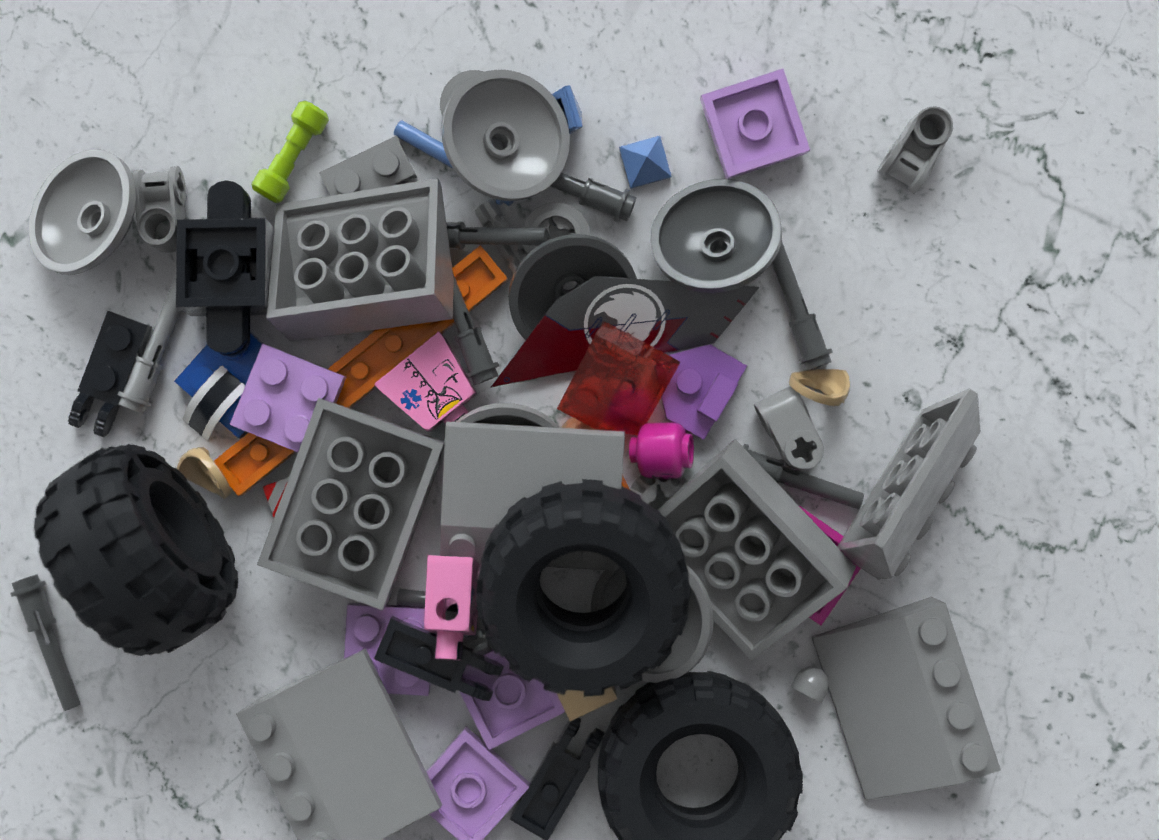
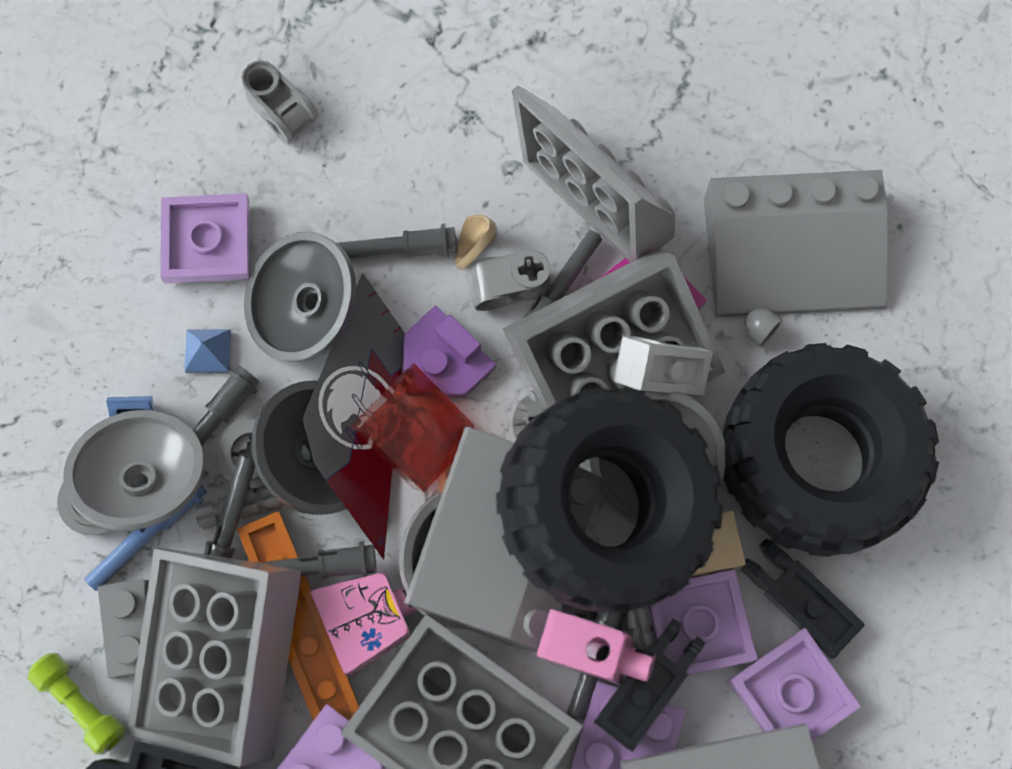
camera: 70 degrees left, 15 degrees down
(662, 450) = (495, 404): dark pink head -> none
(730, 598) = (662, 366): none -> white plate

